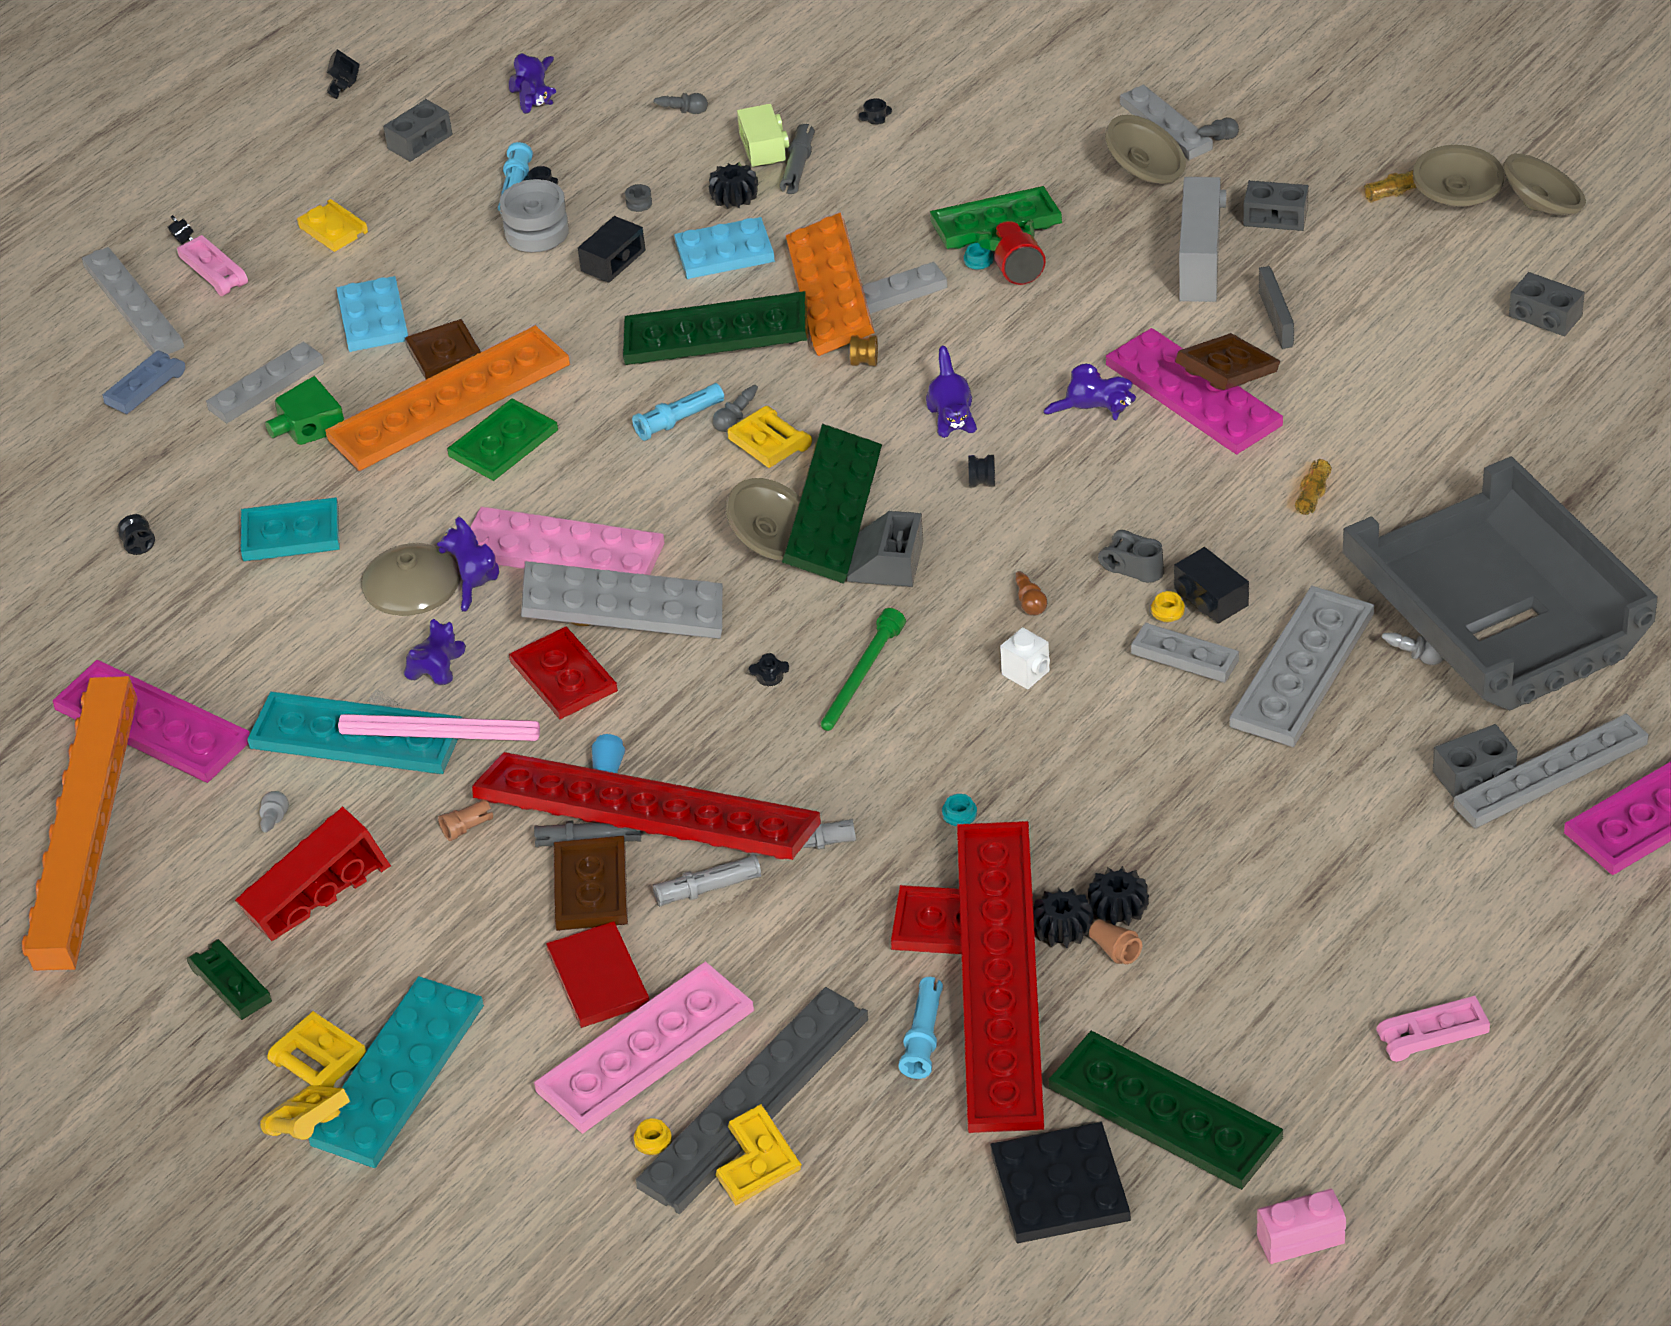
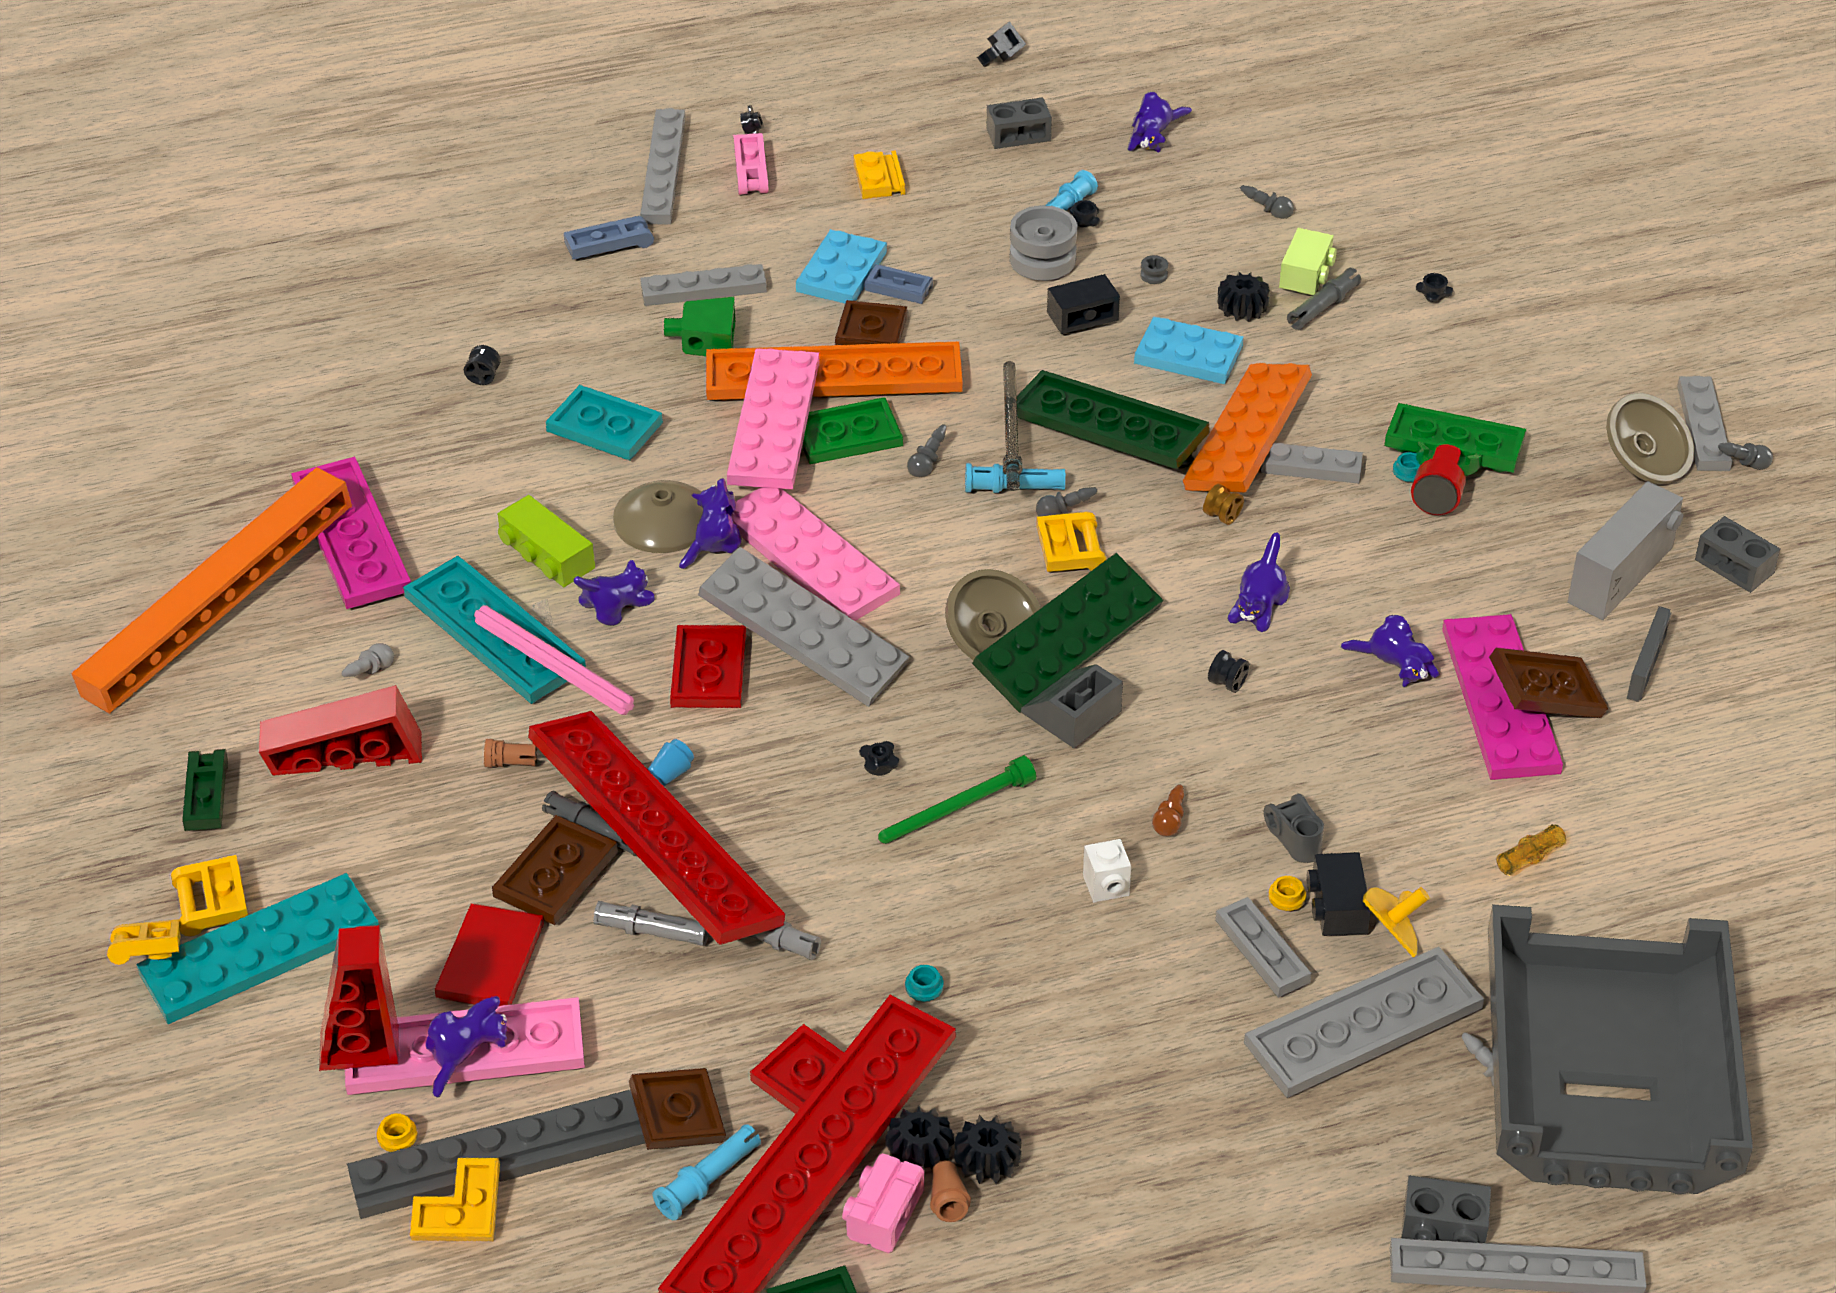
camera: 30 degrees right, 0 degrees up
(334, 643) = (546, 540): none -> lime brick
(434, 305) = (898, 284): none -> sand blue tile
(440, 455) = (773, 419): none -> bright pink plate
(563, 1046) = (359, 1007): none -> red wedge
(588, 434) = (921, 463): none -> dark grey bar
(646, 1035) = (454, 1037): none -> dark purple animal
(673, 395) = (1012, 460): none -> clear smoke bar
(860, 996) = (677, 1108): none -> reddish brown tile
(1077, 974) = (884, 1202): none -> bright pink brick
(1270, 569) = (1395, 913): none -> yellow shield

